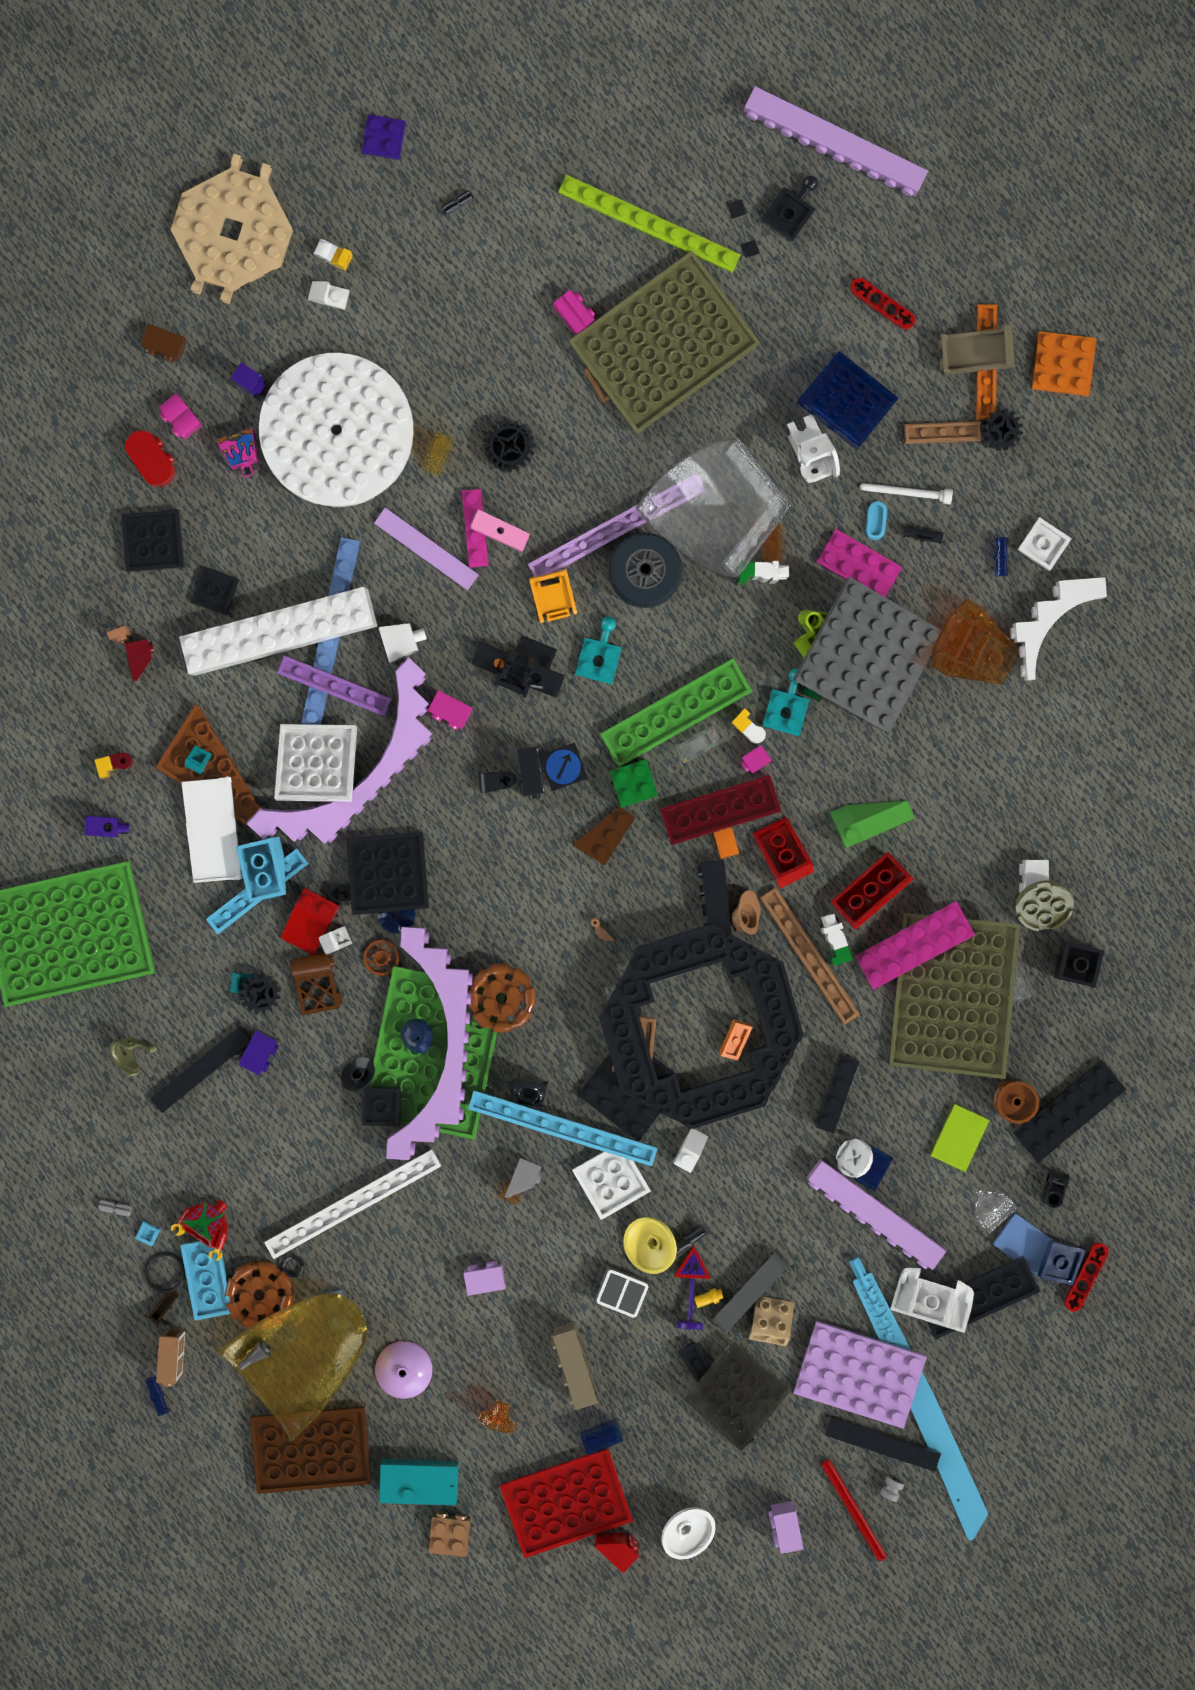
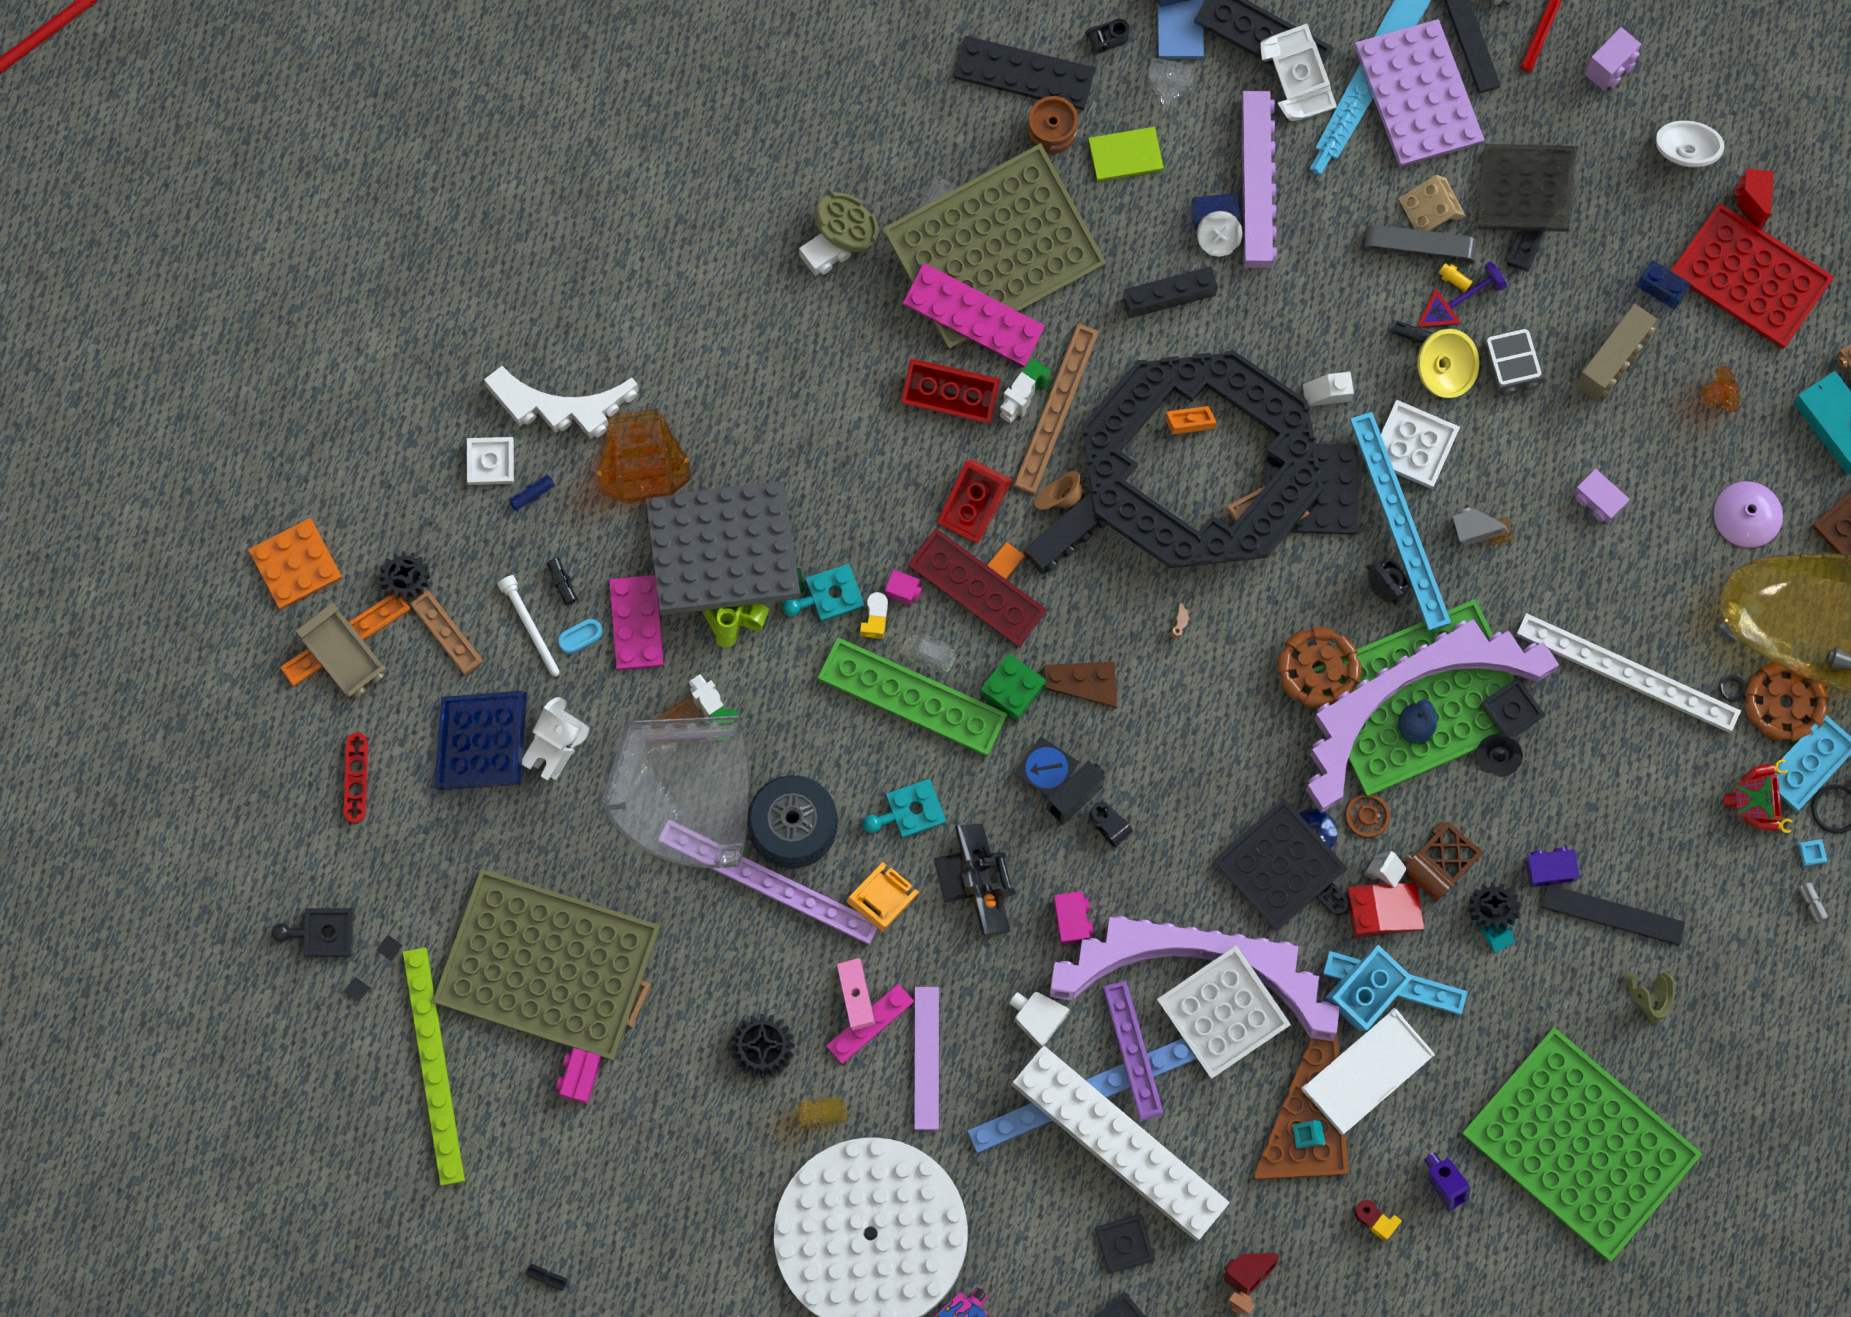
camera: 125 degrees left, 15 degrees down
(835, 141) = (221, 936): lavender brick -> none
(864, 821) = (884, 442): bright green wedge -> none
(1078, 964) = (878, 155): black brick -> none

